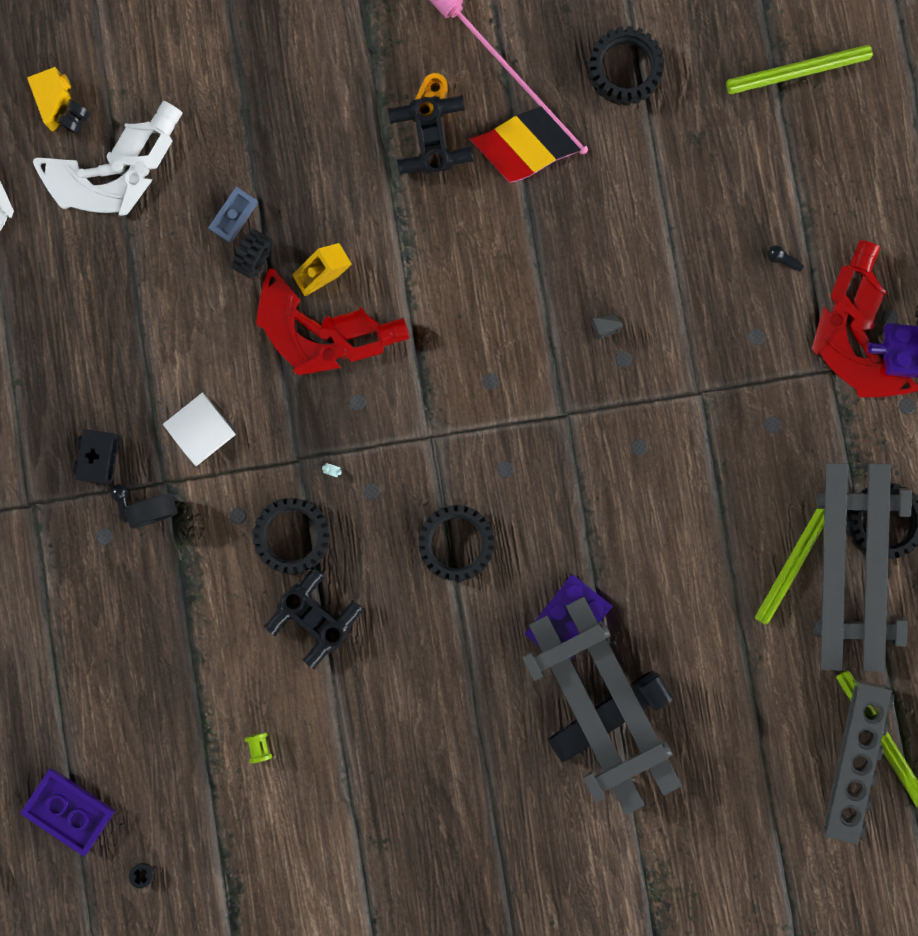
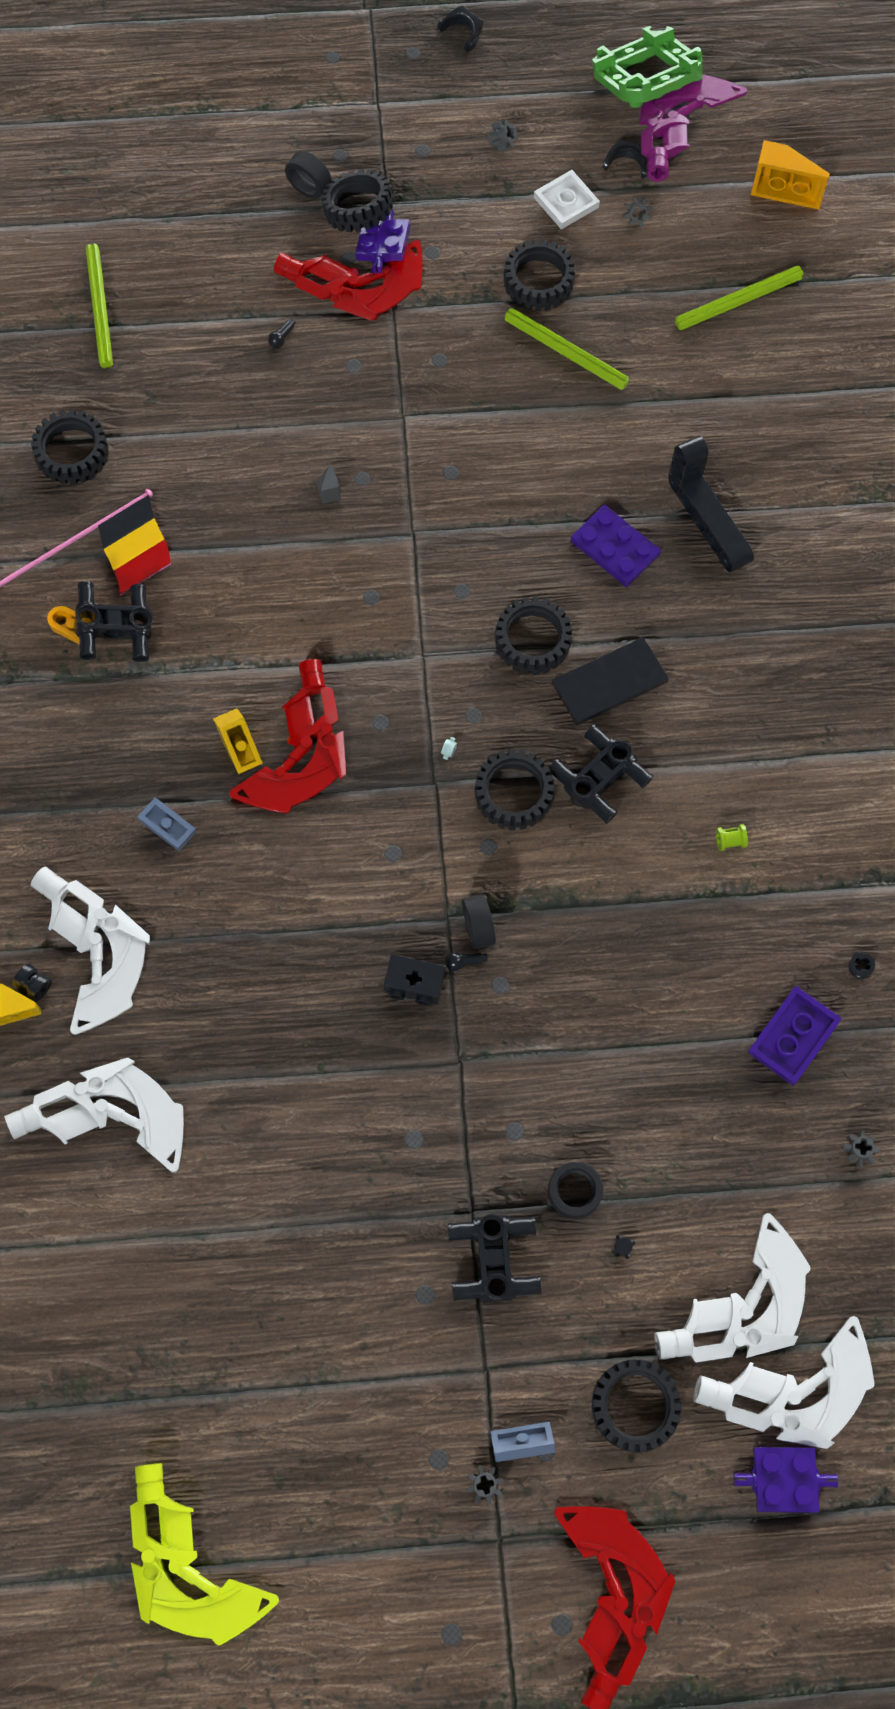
camera: 95 degrees left, 15 degrees down
(199, 429) = (393, 874): white slope -> none
(252, 254) = (213, 801): black tyre -> none
(414, 622) = (610, 681): none -> black tile
(615, 772) = (658, 551): dark grey fence -> none
(853, 828) = (748, 319): dark grey brick -> none
(874, 628) = (636, 285): dark grey fence -> none

